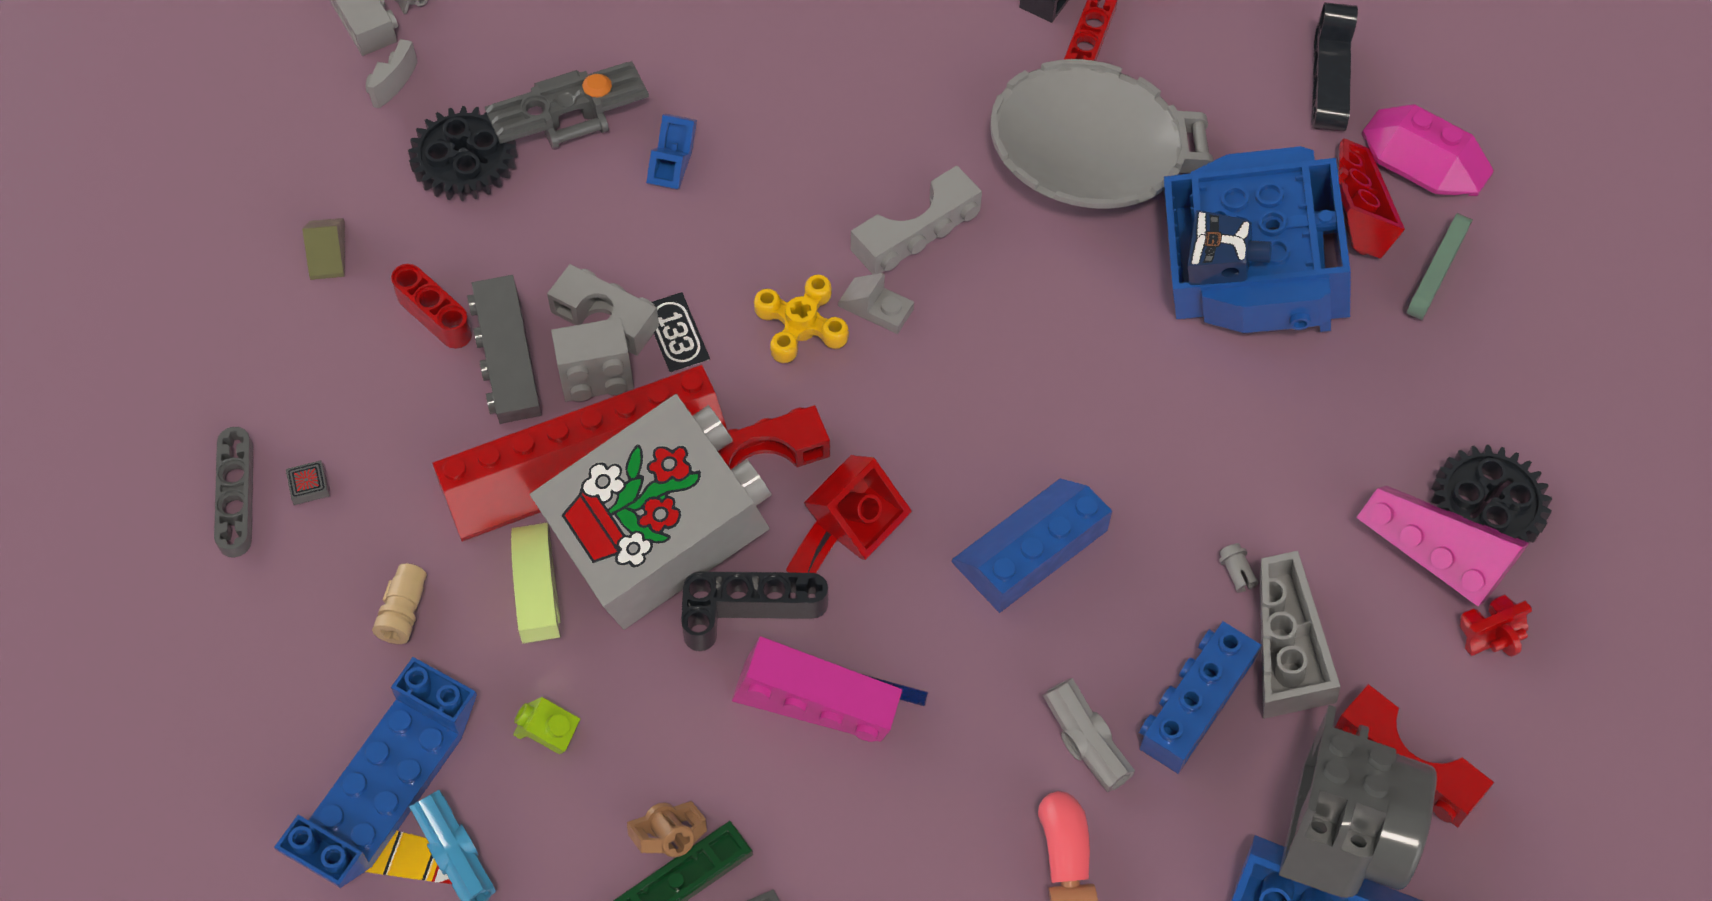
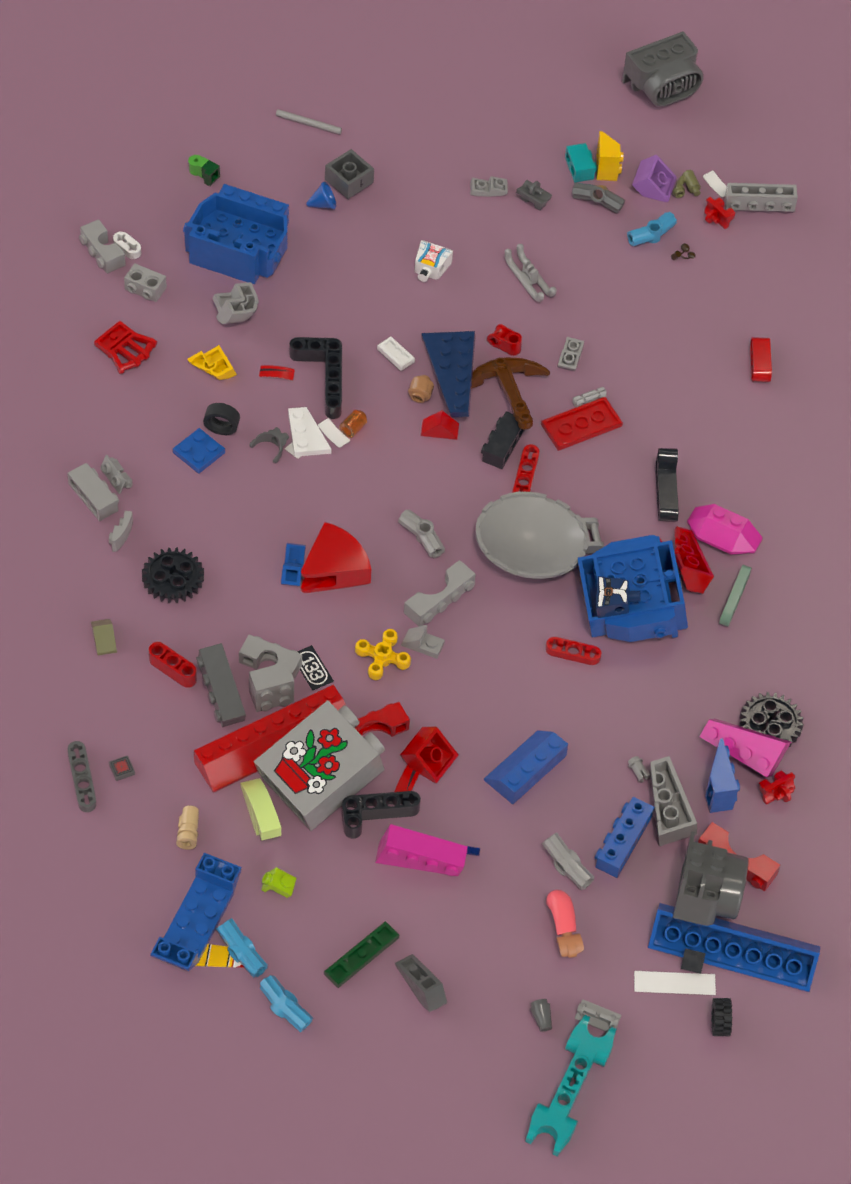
camera: 10 degrees left, 5 degrees down
(564, 93) = (226, 535): dark grey piece -> none
(665, 823) = (353, 927): medium nougat piece -> none
(740, 152) = (335, 562): none -> red piece
(903, 113) = (428, 538): none -> light grey piece
(1114, 342) = (560, 642): none -> red beam
(1392, 612) = (722, 786): none -> slope

